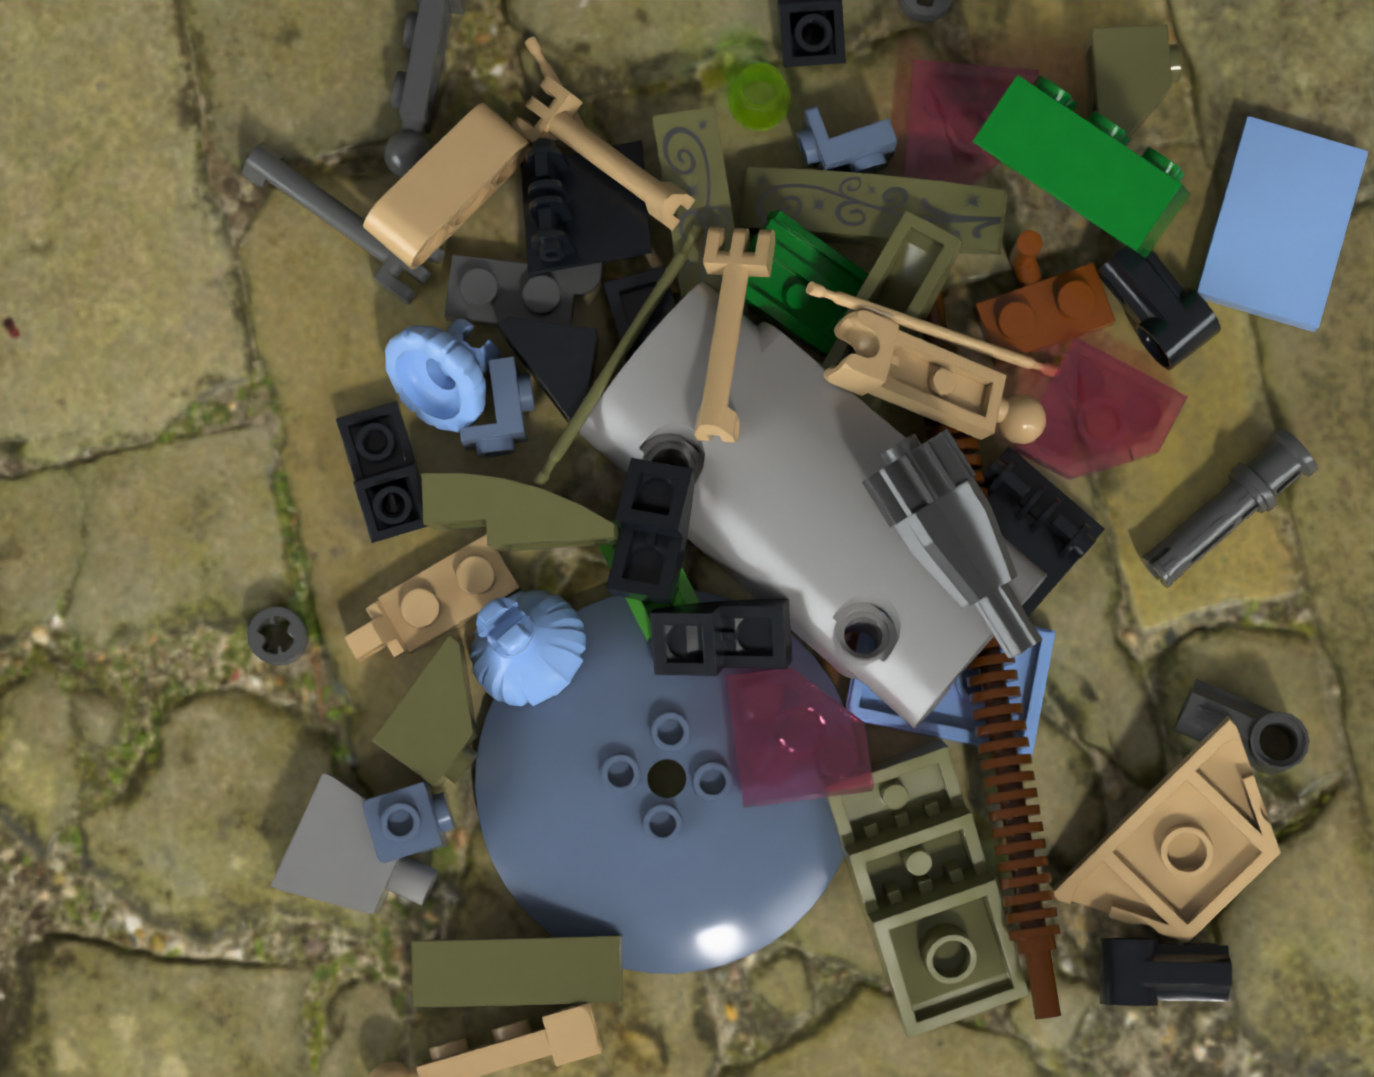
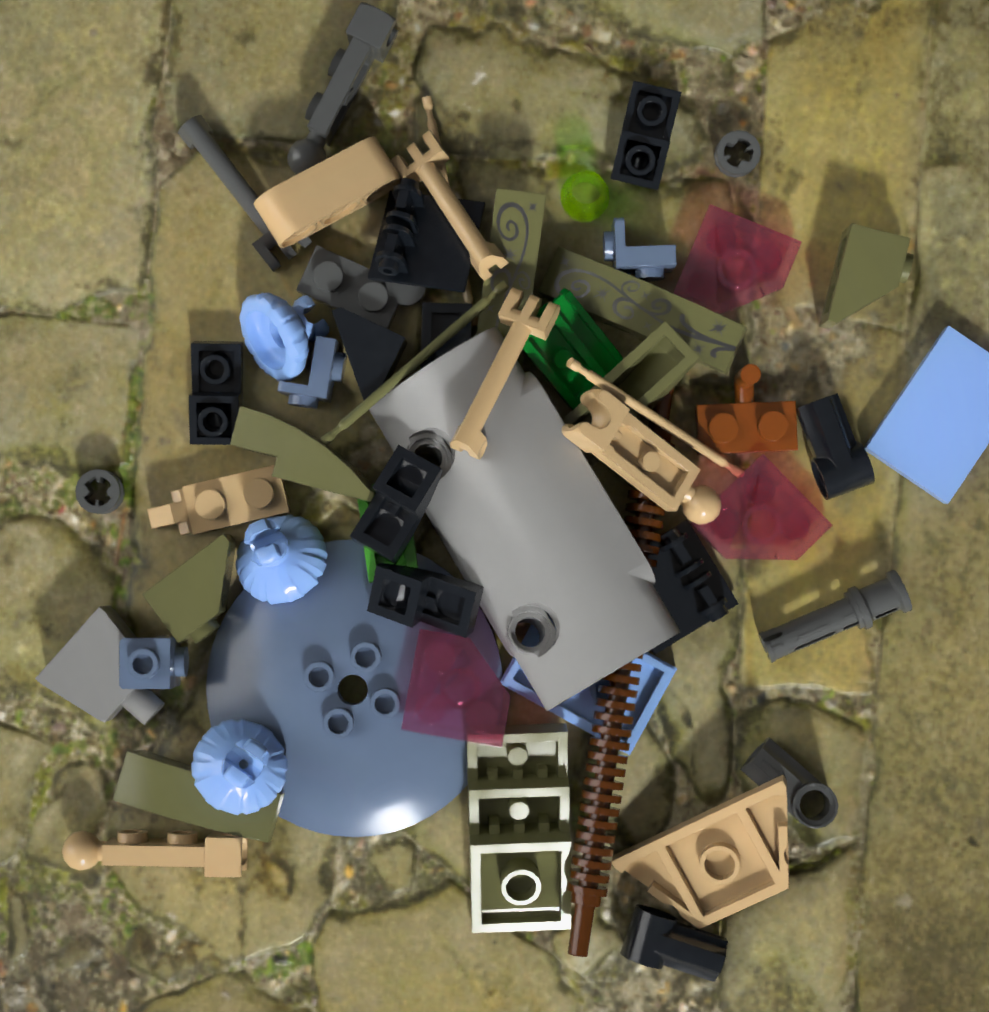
camera: 15 degrees right, 5 degrees up
(550, 936) = (218, 770): none -> light blue hair
(952, 532) = (618, 581): dark grey piece -> none
(1084, 163) = (809, 329): green brick -> none

